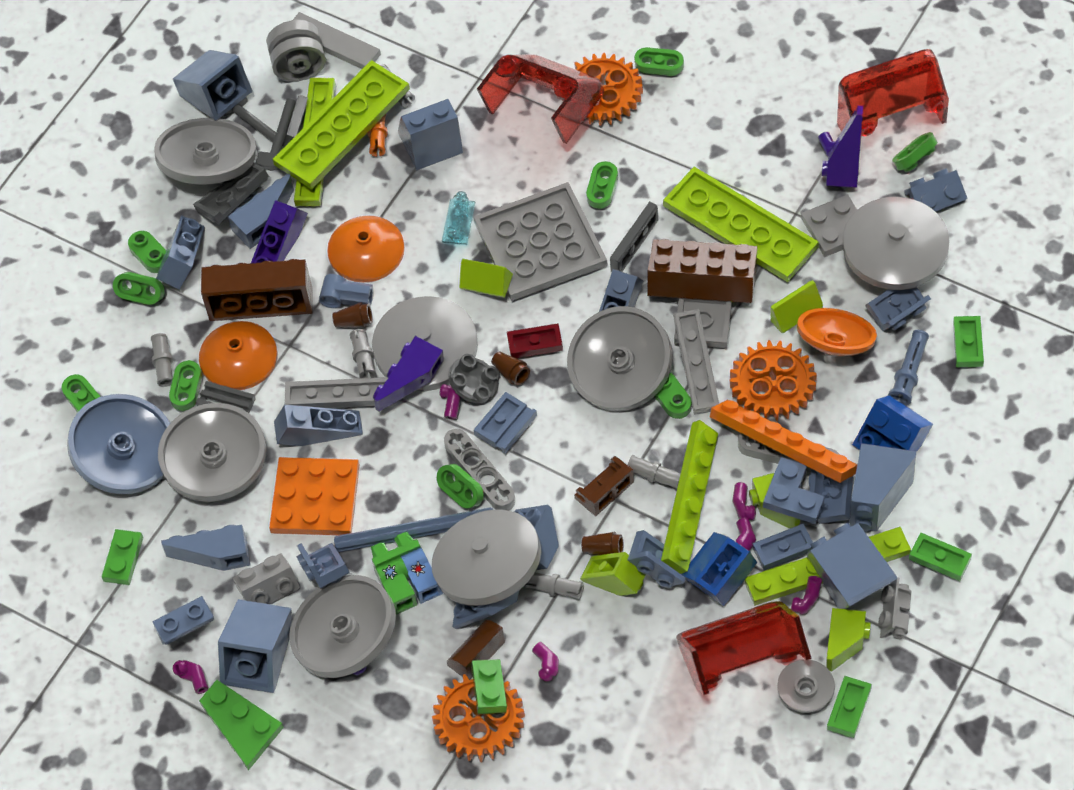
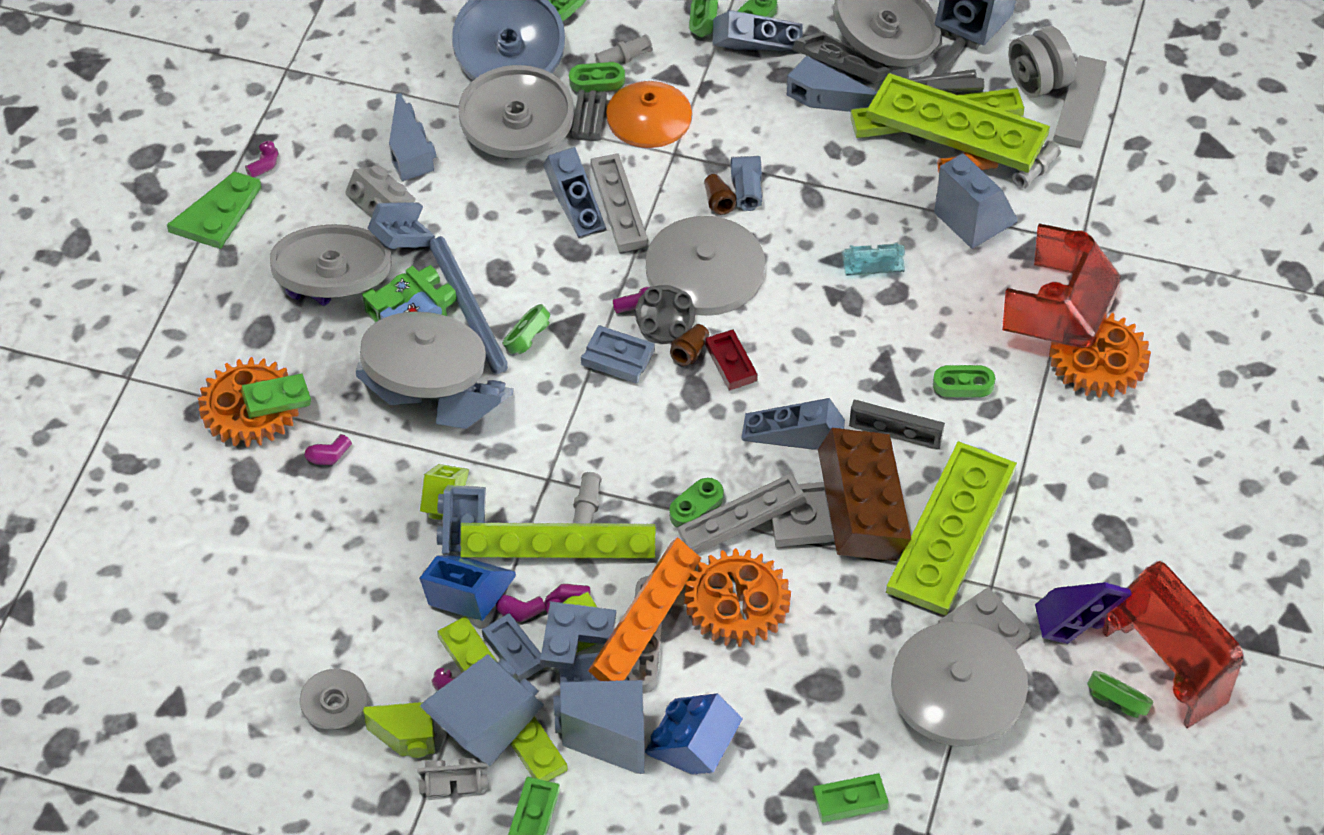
camera: 70 degrees right, 5 degrees down
(122, 557) = (388, 77): bright green plate -> none
(183, 620) = (315, 134): sand blue bracket -> none
(254, 645) = (301, 195): sand blue slope -> none
(257, 290) = (721, 99): reddish brown brick -> none
(279, 233) = (804, 108): dark purple slope -> none
(314, 496) = (491, 213): orange plate -> none
(362, 354) = (673, 212): light grey pin -> none
(368, 258) = (814, 190): orange dish -> none
(414, 370) = (652, 249): dark purple slope -> none
(479, 646) = (330, 385): reddish brown brick -> none
(482, 468) = (558, 347): light grey beam -> none
(484, 278) = (798, 294): lime slope -> none
(541, 240) = (867, 338): light grey plate -> none
(555, 585) = (422, 438): light grey pin -> none
(603, 543) = (481, 472): reddish brown cone -> none
(605, 486) = (555, 462): reddish brown hinge -> none
(619, 358) = (721, 437): light grey dish -> none
(659, 61) = (1163, 405): bright green plate -> none
(741, 641) = (375, 613): clear red windscreen -> none
(788, 310) = (849, 604): lime slope -> none
(836, 331) = (816, 645): orange dish -> none
(849, 706) = (316, 749): bright green plate -> none
(894, 305) = (876, 705): sand blue bracket -> none
(906, 376) = (778, 737): sand blue pin -> none
(939, 192) = (1065, 727): sand blue bracket -> none

